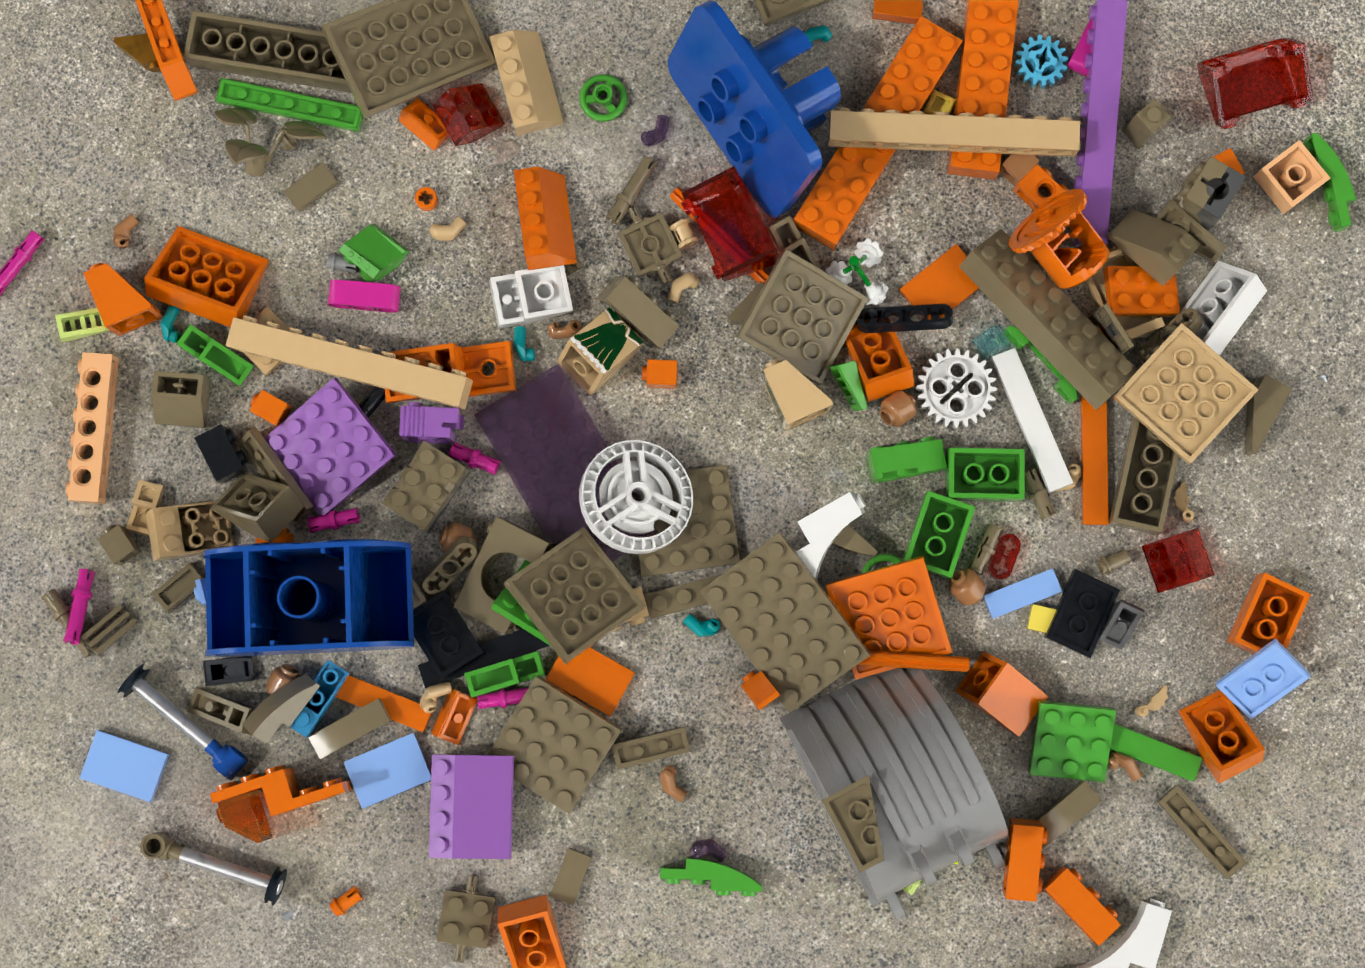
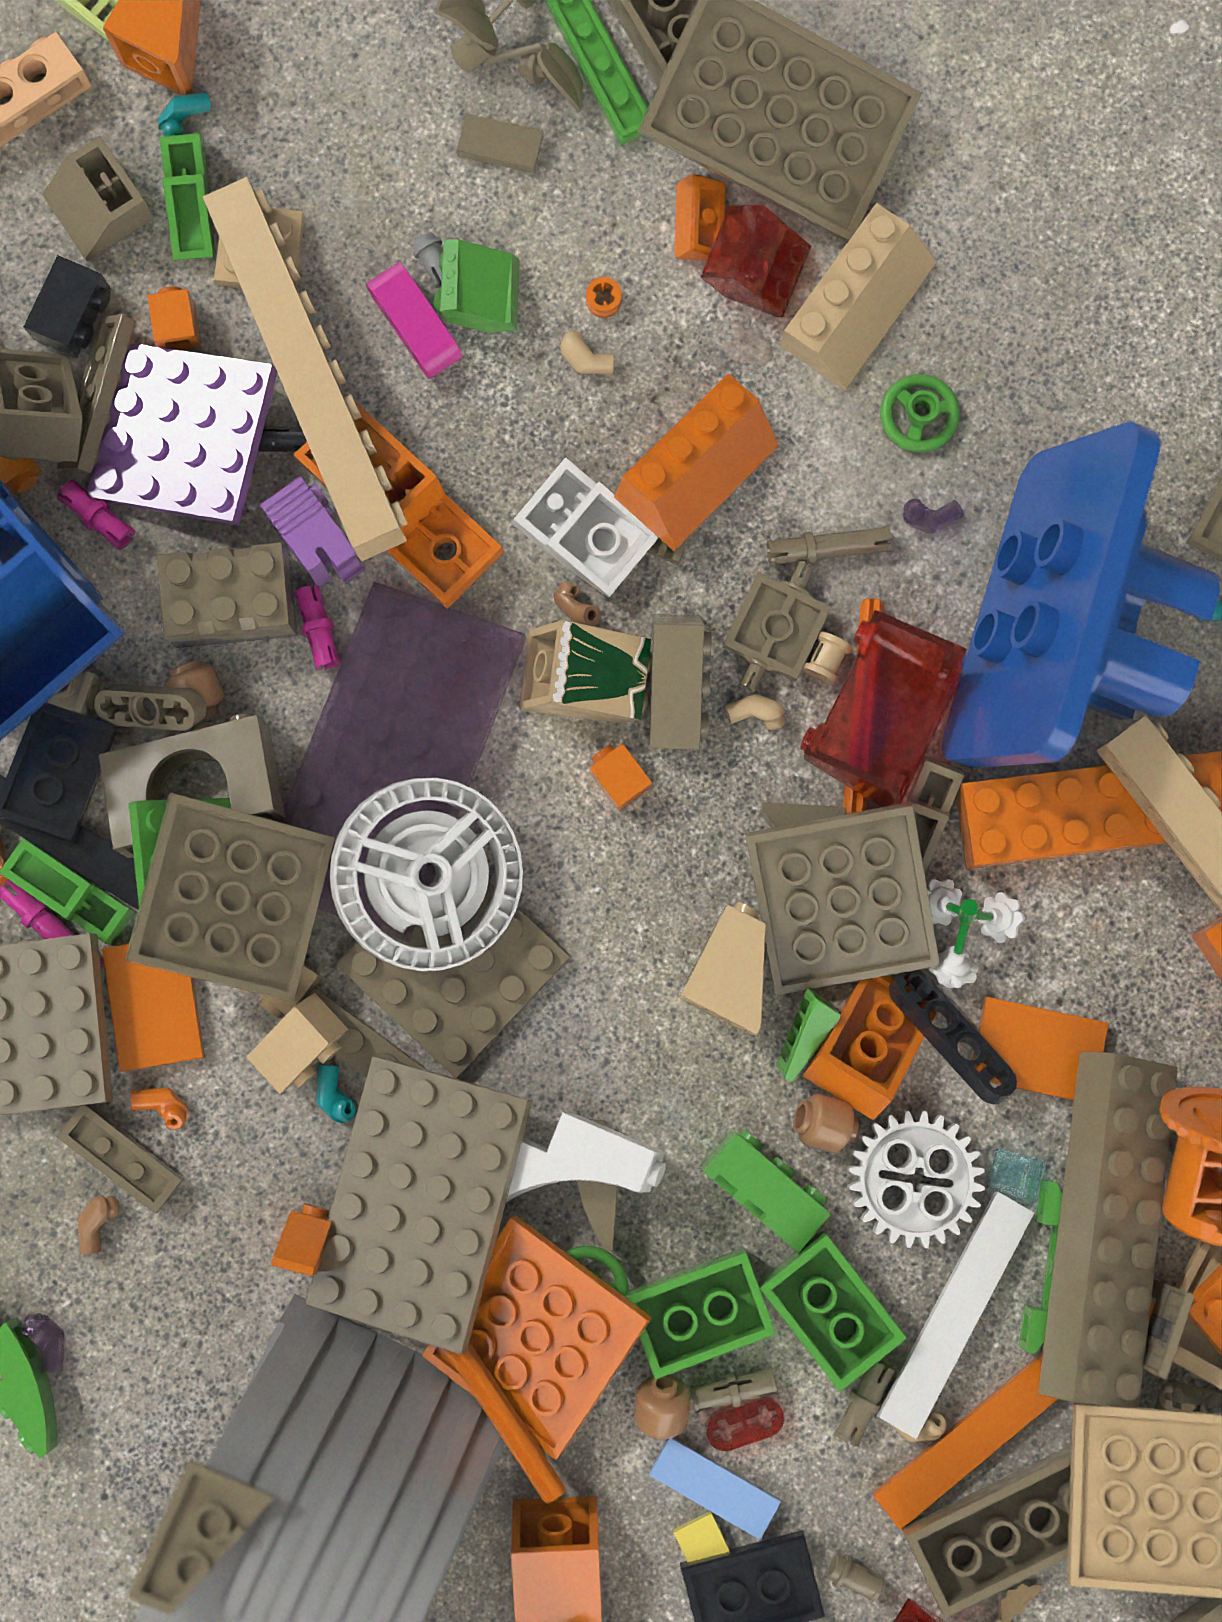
camera: 45 degrees right, 0 degrees up
(205, 276) = (278, 105): orange slope -> none
(525, 354) = (509, 568): teal arm -> none
(642, 707) = (165, 1102): none -> orange arm
(665, 621) = (297, 1043): none -> tan brick

